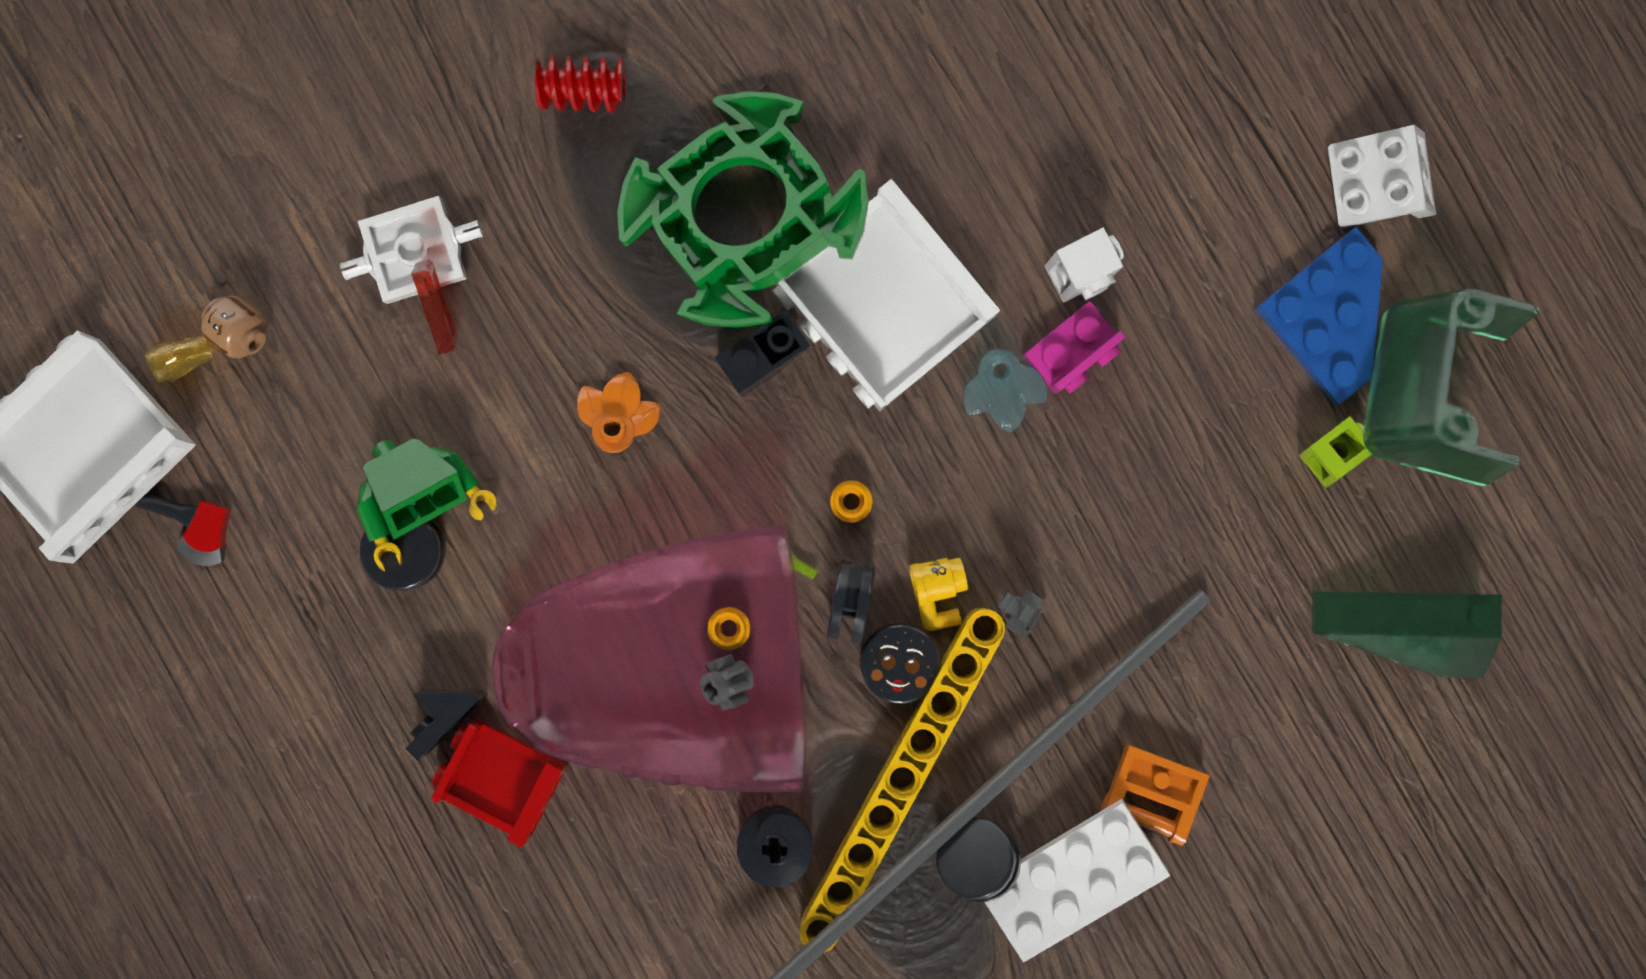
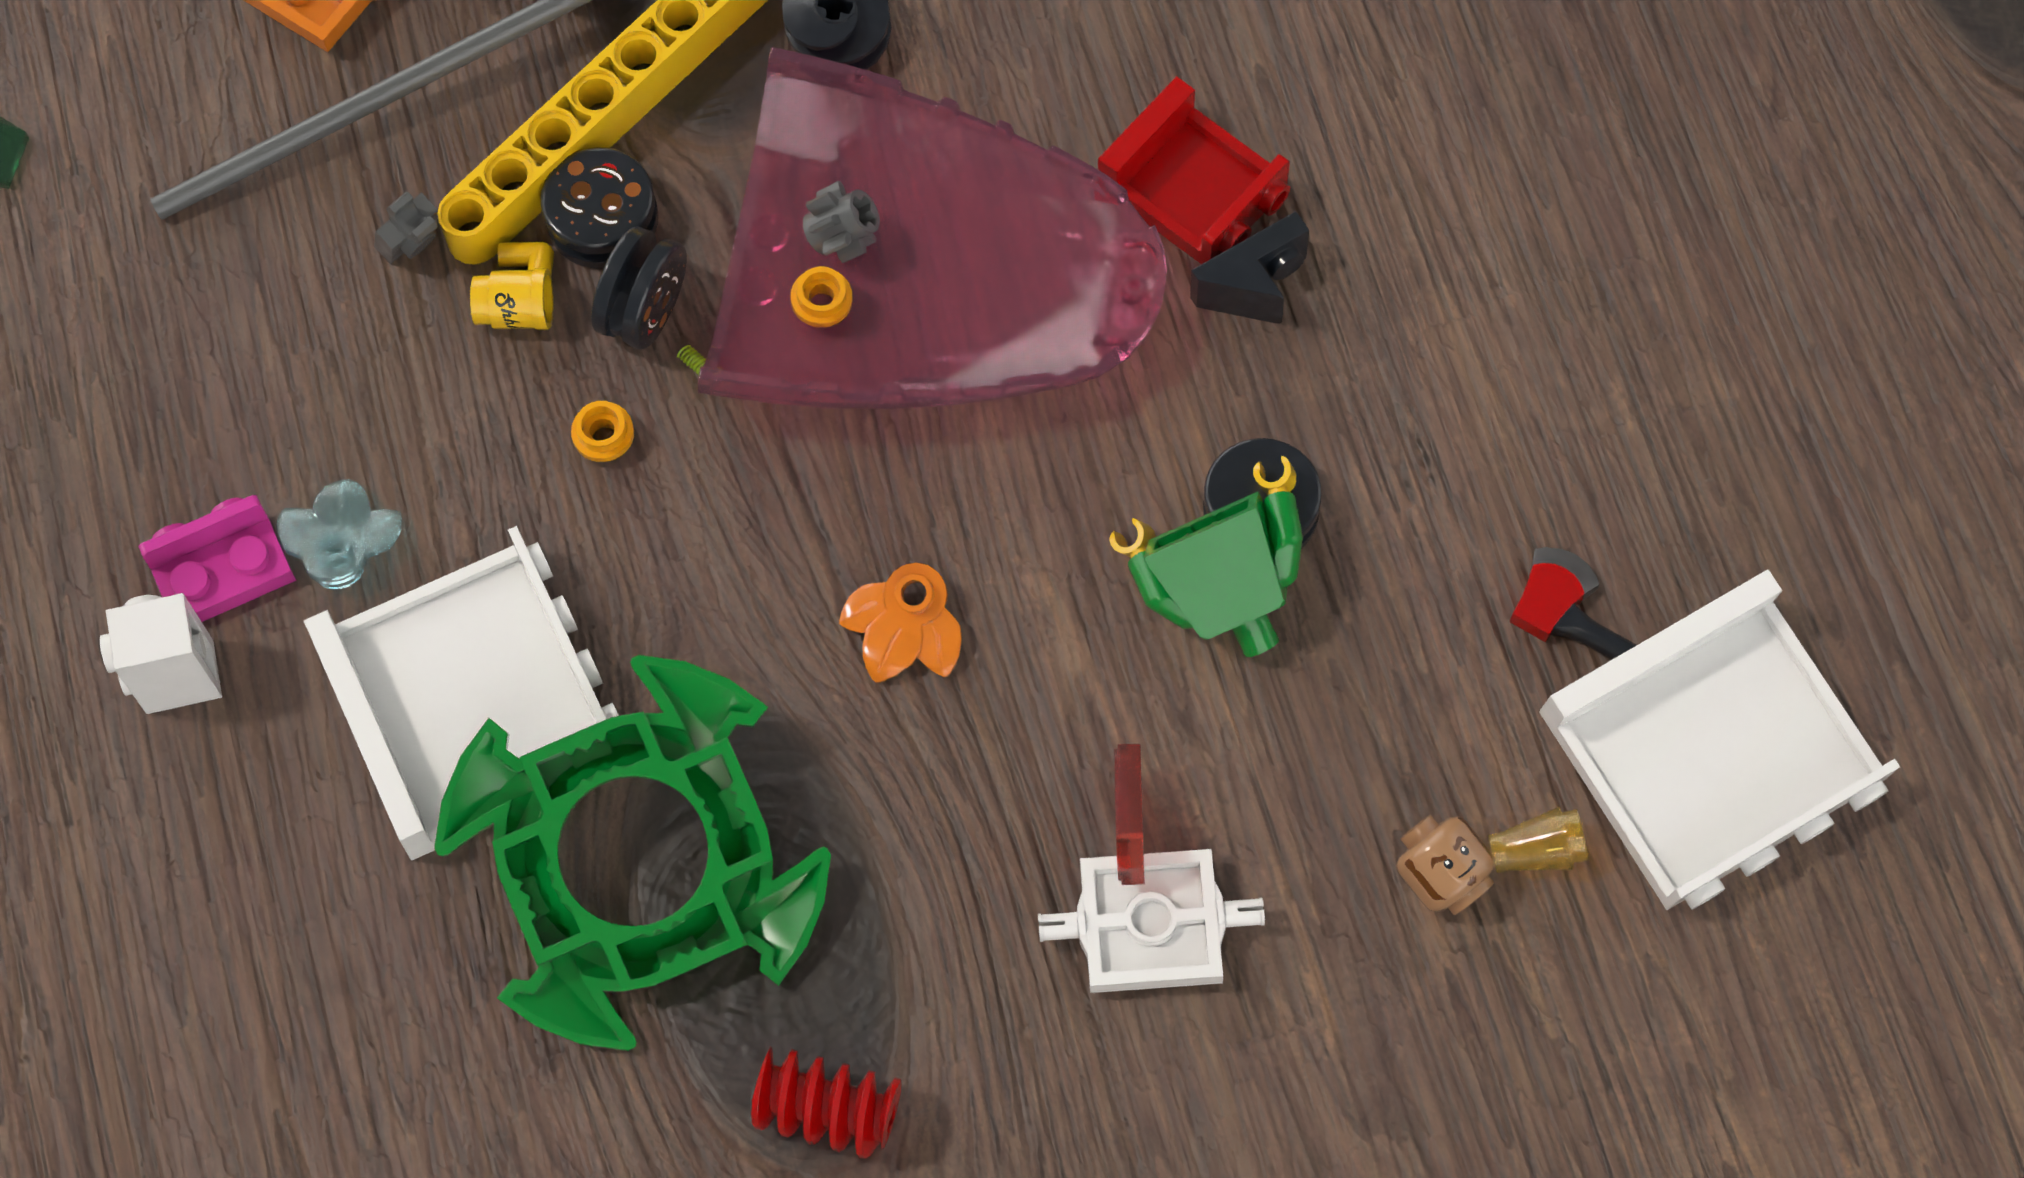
camera: 160 degrees left, 20 degrees down
(762, 353) = (677, 629): black slope -> none

